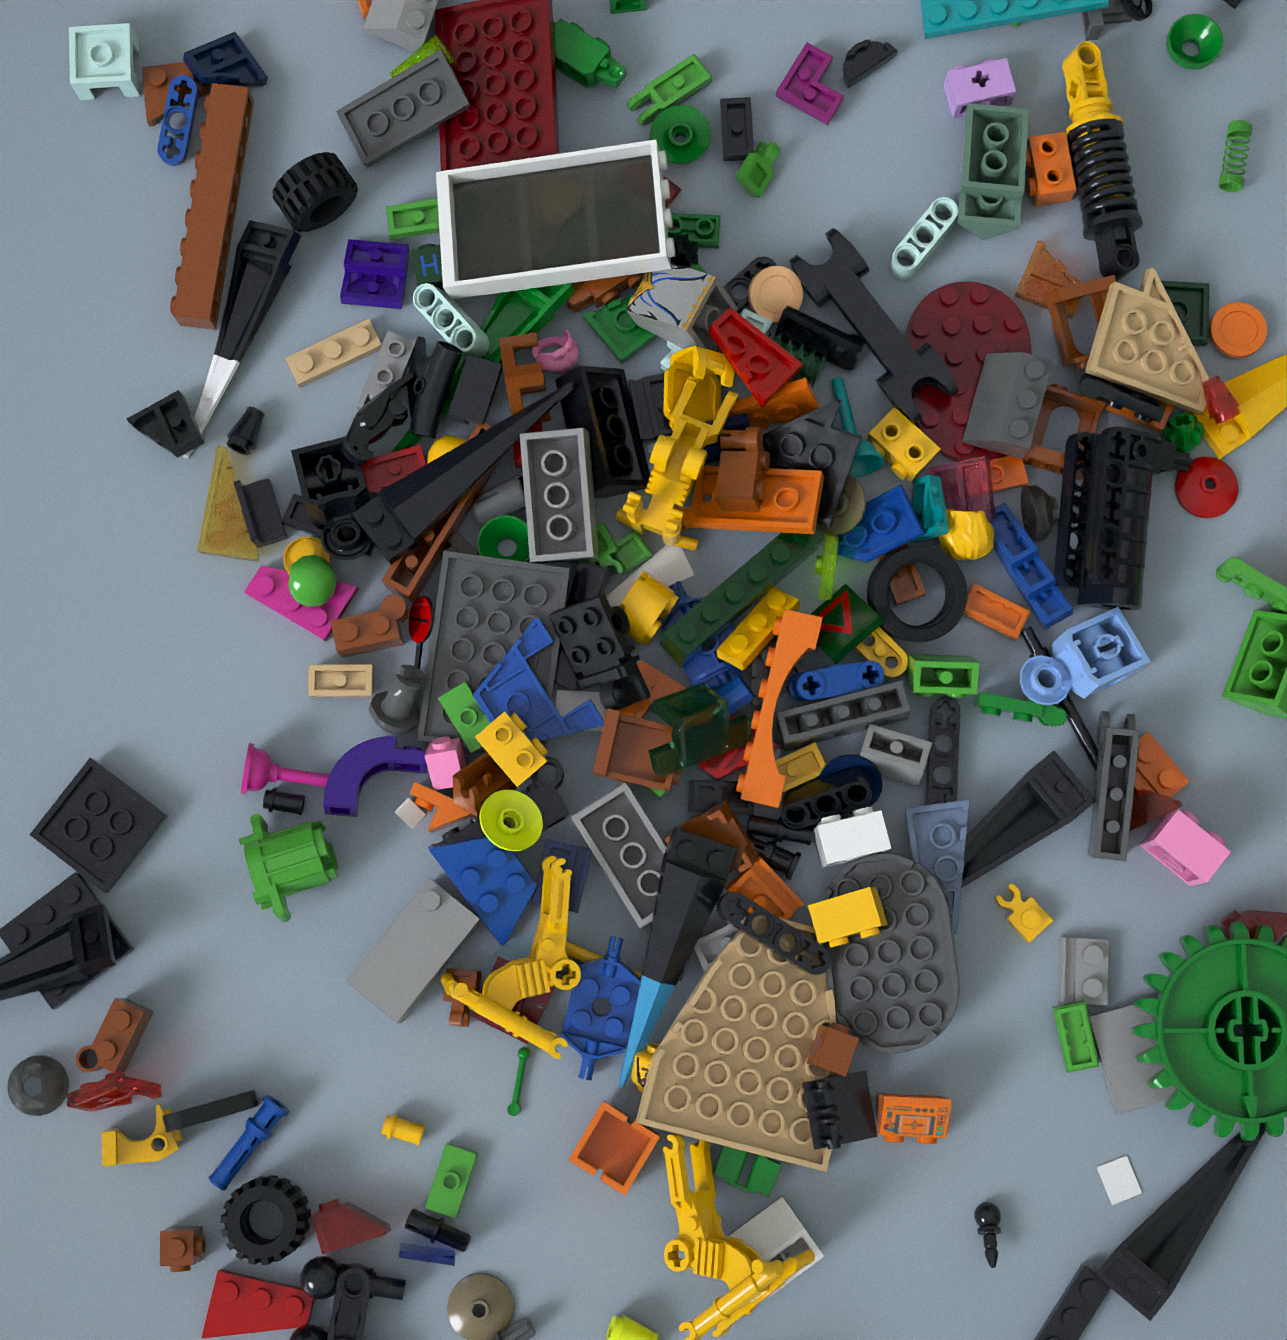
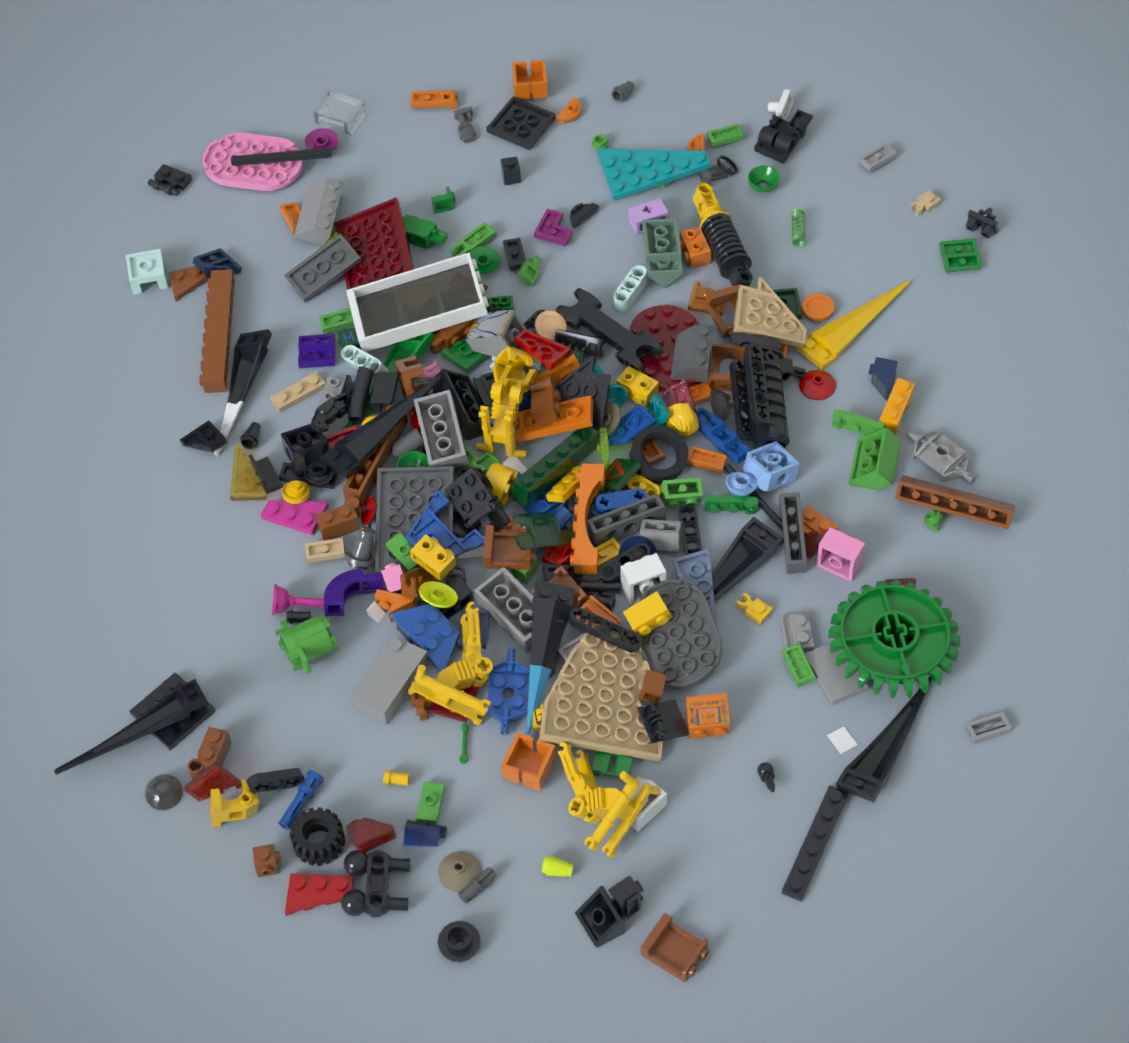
camera: 10 degrees left, 25 degrees down
(98, 825) = (186, 645): black plate -> none
(189, 100) = (190, 286): blue beam -> none
(311, 581) = (301, 498): bright green hair -> none
(315, 191) = (277, 310): black tyre -> none
(1184, 432) = (798, 356): green gear -> none
(1219, 400) = (812, 335): clear red cone -> none

